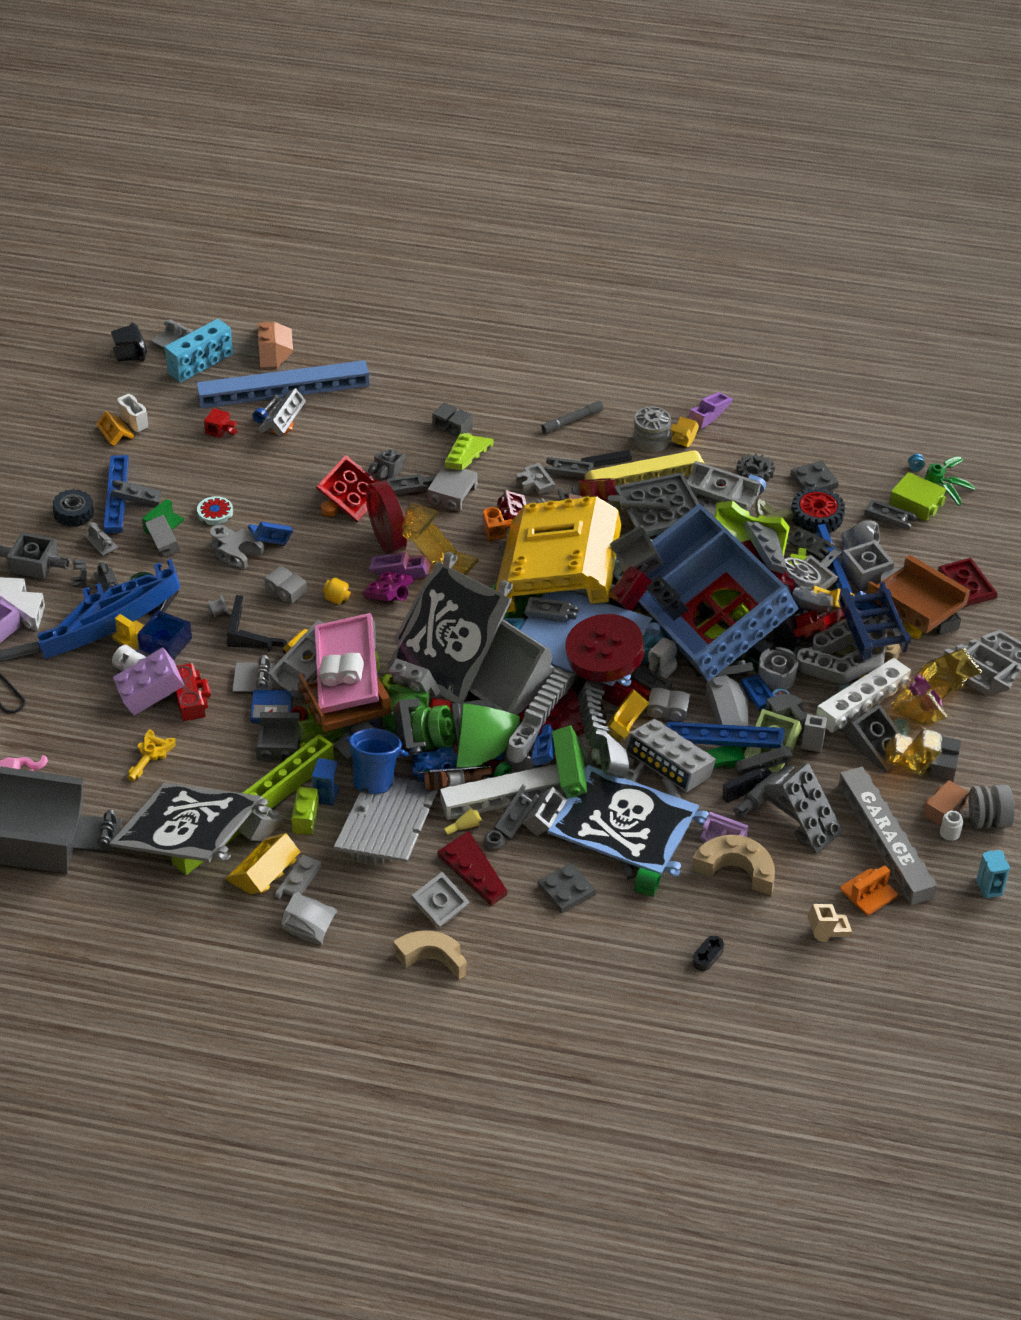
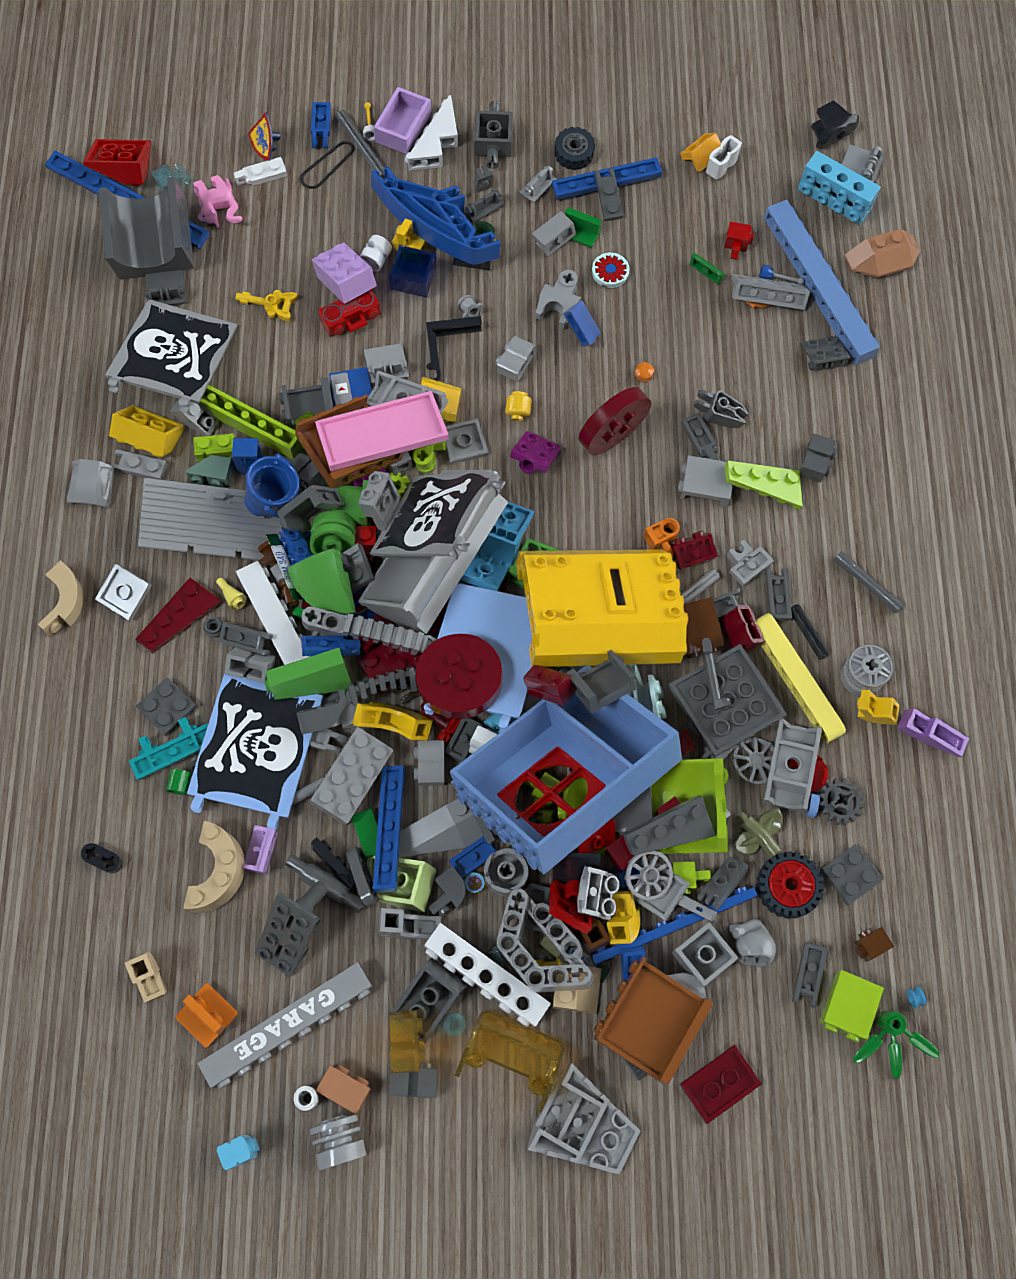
camera: 75 degrees right, 25 degrees up
(241, 448) = (707, 269): none -> green slope
(329, 816) = (212, 471): none -> sand green slope
(341, 669) = (361, 426): white brick -> none
(347, 487) = (672, 381): red slope -> none
(353, 395) = (825, 353): none -> dark grey hinge
(415, 566) = (573, 458): medium lavender slope -> none
(430, 540) = (597, 476): clear yellow windscreen -> none
(551, 609) = (508, 610): dark grey hinge -> none
(618, 894) = (156, 758): none -> teal hinge
(666, 598) = (528, 724): black hinge -> none
(859, 630) = (550, 955): dark blue fence -> none
(872, 475) = (872, 944): none -> reddish brown brick
(920, 686) = (492, 1044): magenta hinge -> none

